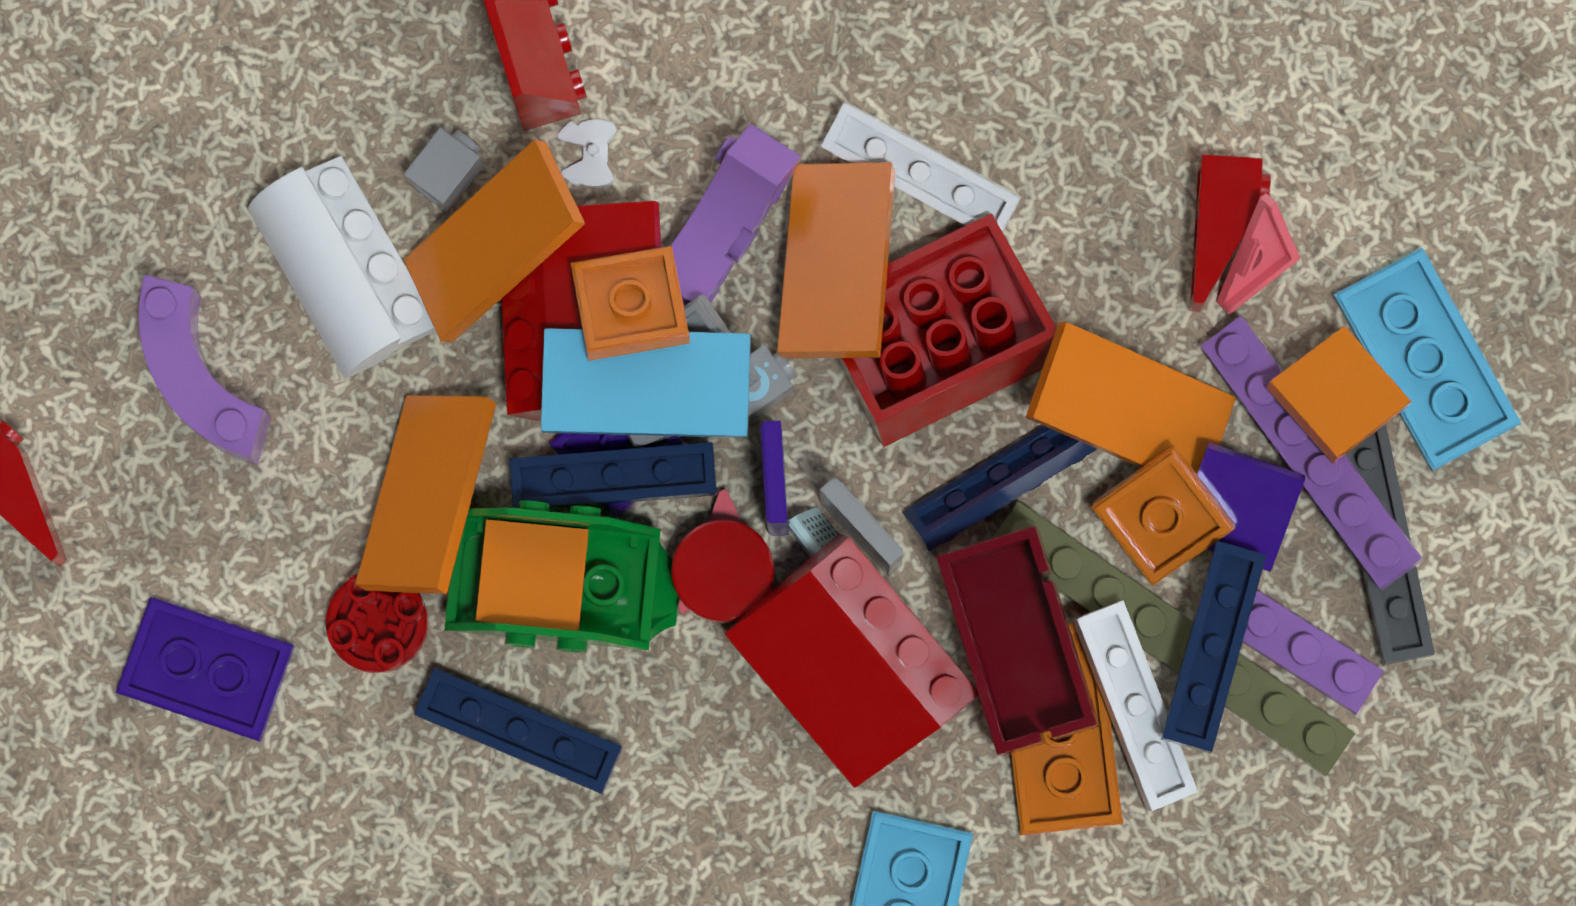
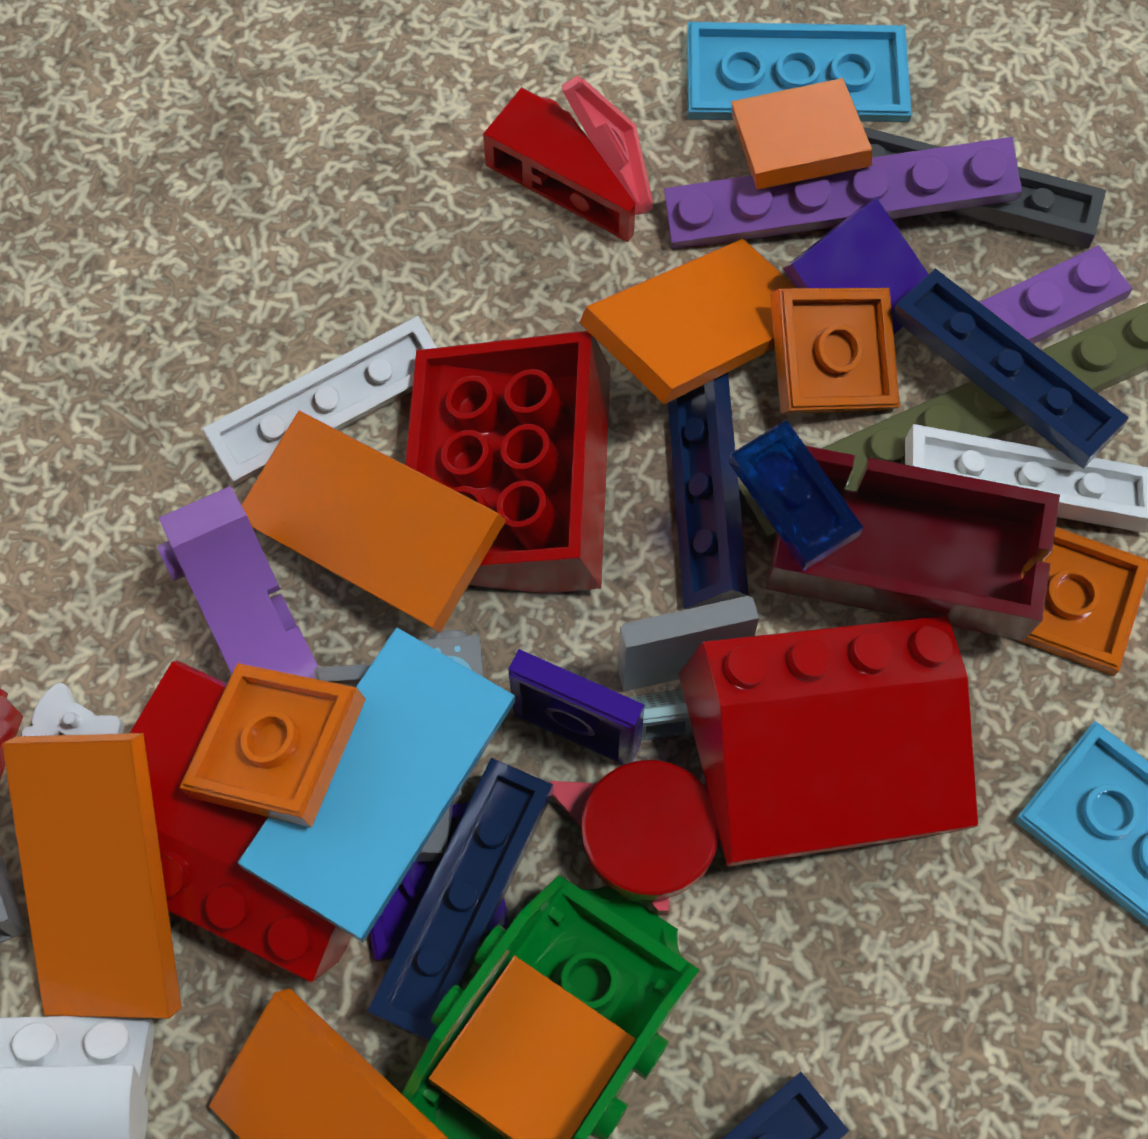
camera: 65 degrees left, 15 degrees down
(987, 543) = (795, 494): none -> clear blue plate

